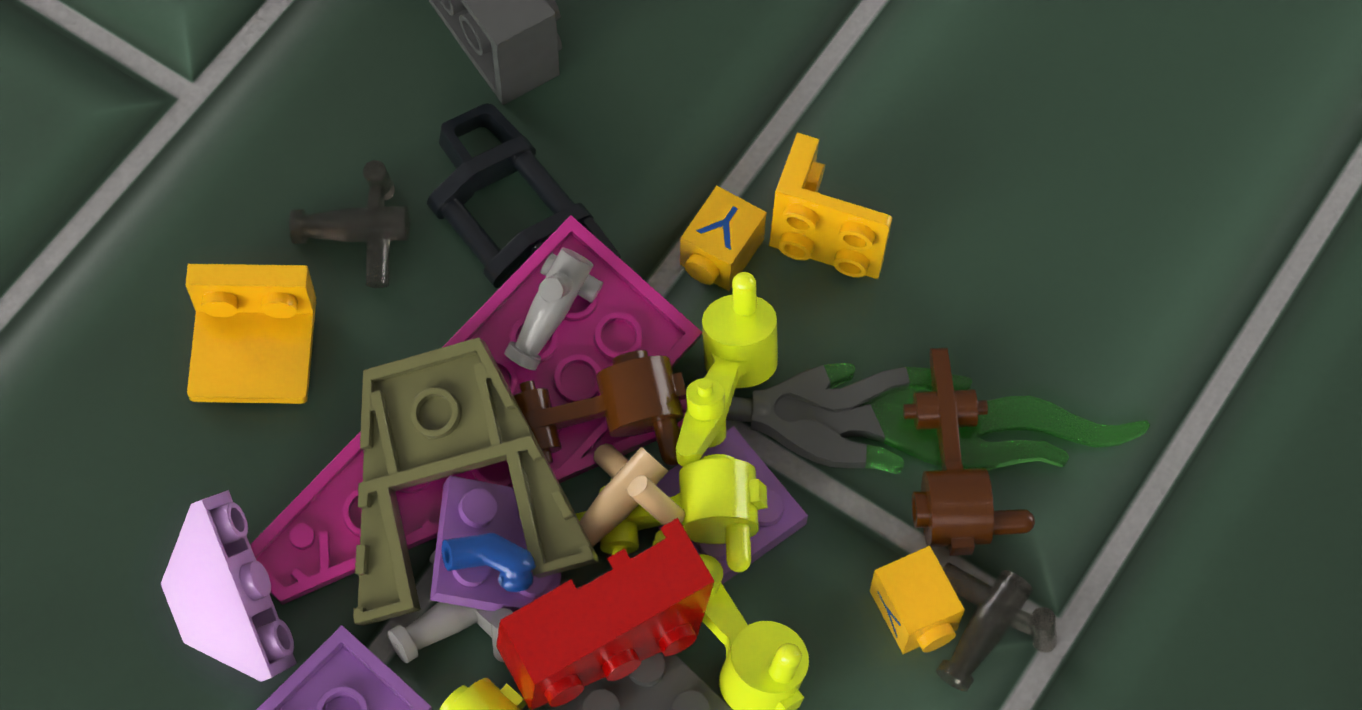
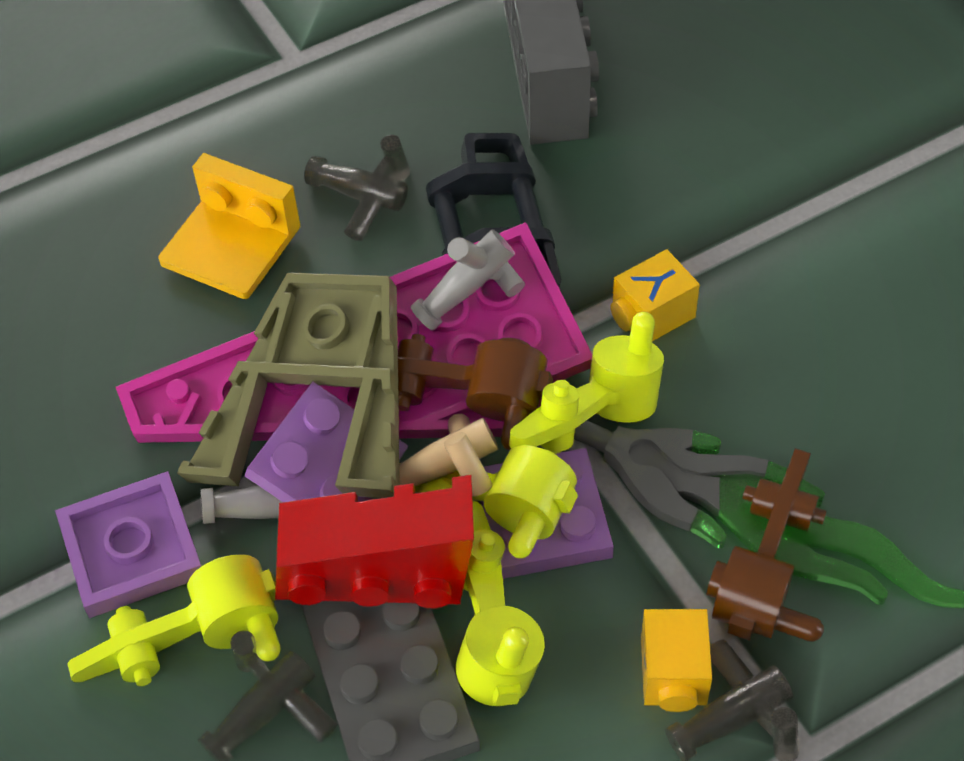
camera: 30 degrees right, 10 degrees down
(224, 593) = (87, 402): slope -> none
(494, 551) = (310, 451): blue arm -> none
(821, 226) = (743, 310): yellow bracket -> none

